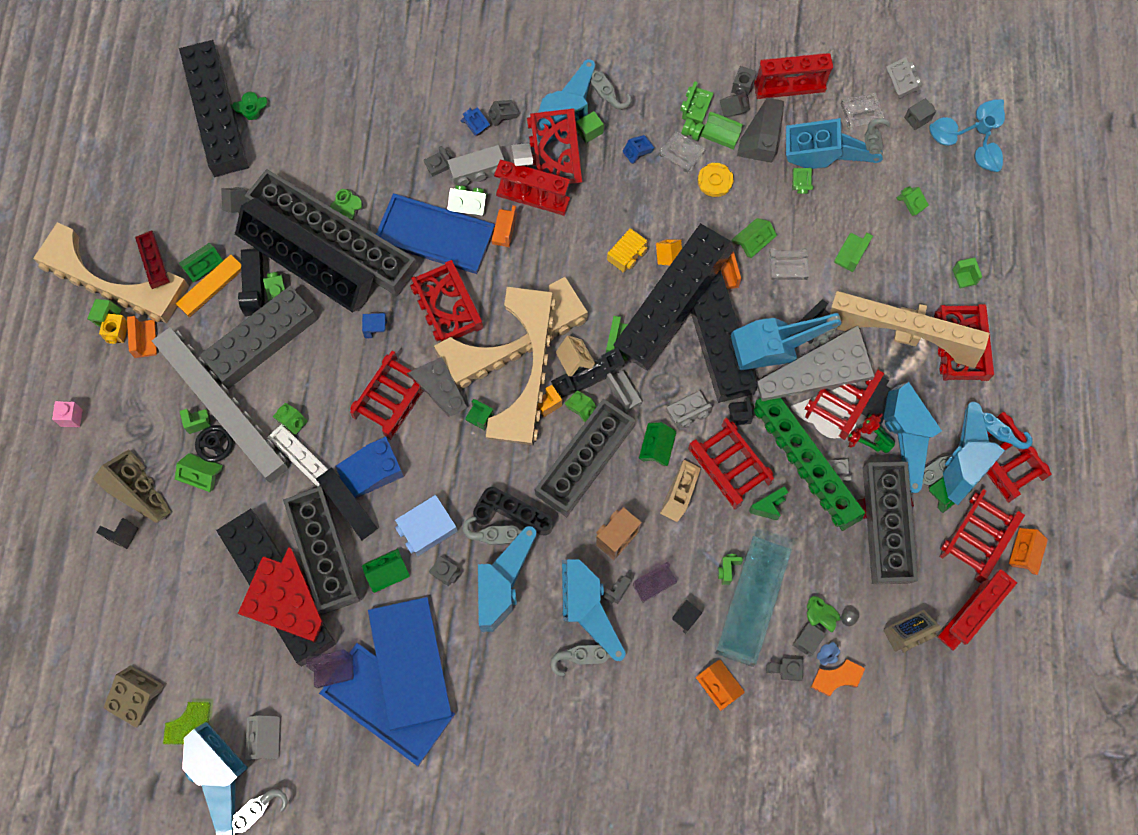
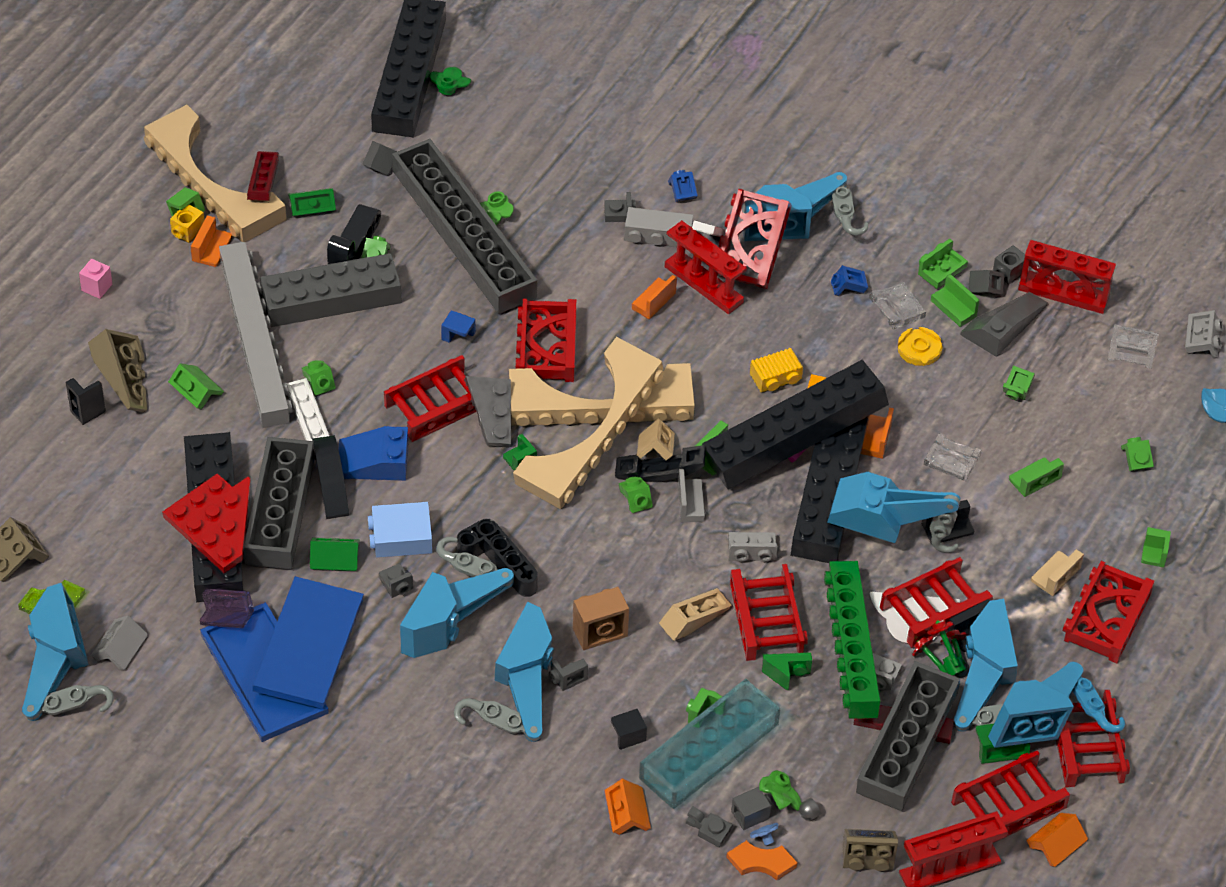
camera: 25 degrees right, 20 degrees down
(195, 421) = (219, 341): bright green panel -> none
(208, 438) = (226, 363): black piece -> none
(209, 286) = (307, 226): light orange tile -> none
(303, 254) = (422, 231): black brick -> none
(435, 233) = (578, 272): blue tile -> none
(467, 200) = (628, 256): bracket -> none
(502, 110) = (719, 187): dark grey bracket -> none
(550, 402) = (603, 476): light orange panel -> none
(584, 457) = (608, 537): dark grey brick -> none
(589, 127) = (806, 240): bright green panel -> none
(654, 582) = (614, 682): clear purple panel -> none
(657, 443) = (699, 562): green panel -> none
(691, 128) = (920, 284): bright green wheel -> none
(741, 412) = (808, 573): black panel -> none
(755, 236) = (930, 417): bright green panel -> none
(823, 142) = (1062, 351): dark azure slope -> none
(828, 366) = (935, 562): light grey wing -> none
(920, 114) = (1199, 374): dark grey brick -> none
(961, 342) = (1094, 592): tan arch -> none

